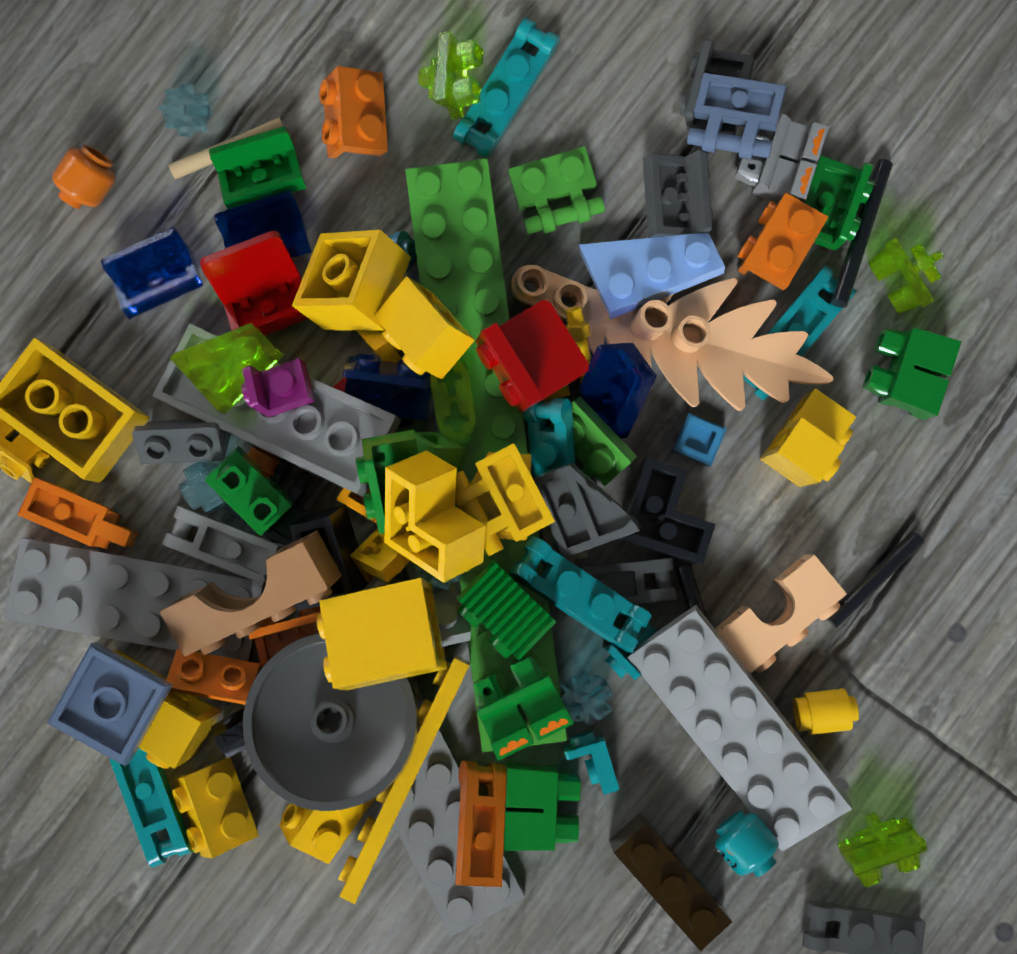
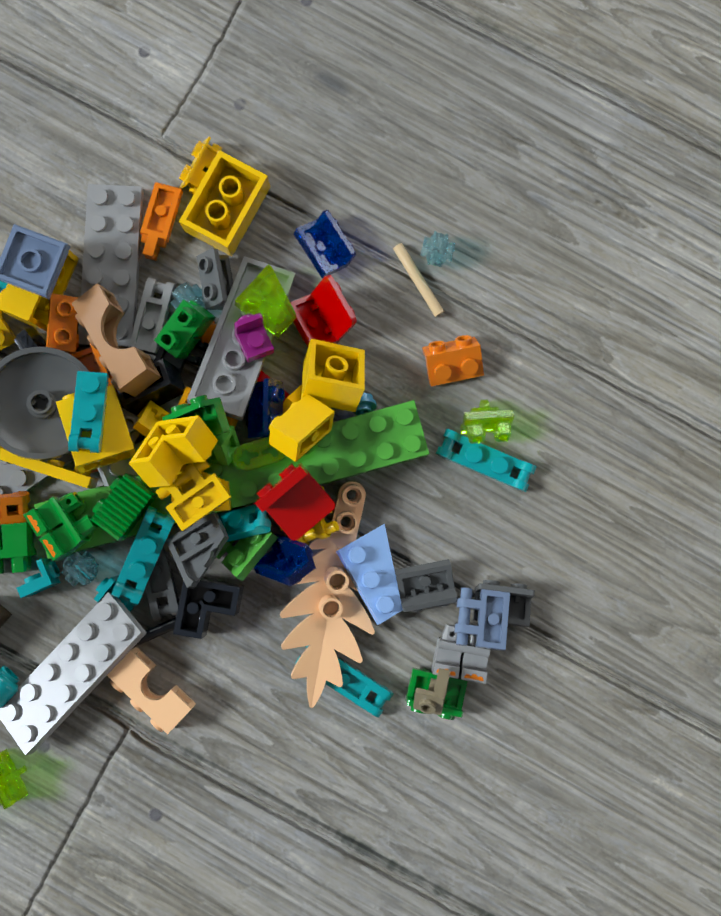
camera: 80 degrees right, 0 degrees up
(84, 177) = (383, 189): orange head -> none
(257, 167) = (404, 302): green bracket -> none
(265, 215) = (370, 315): clear blue bracket -> none
(354, 637) = (88, 411): none -> teal plate
(551, 180) = (427, 499): bright green plate -> none
(699, 439) = (263, 622): dark azure tile -> none
(783, 241) = (403, 661): orange bracket -> none
(810, 440) = (269, 696): yellow brick -> none
(825, 711) = (90, 730): yellow brick -> none
(838, 193) = (432, 700): none -> dark tan bracket
(858, 244) = (407, 714): black bar -> none
(876, 578) = (185, 754): black bar -> none
(895, 259) = (382, 757): clear neon green hips -> none
(916, 370) = (317, 755): green hips -> none

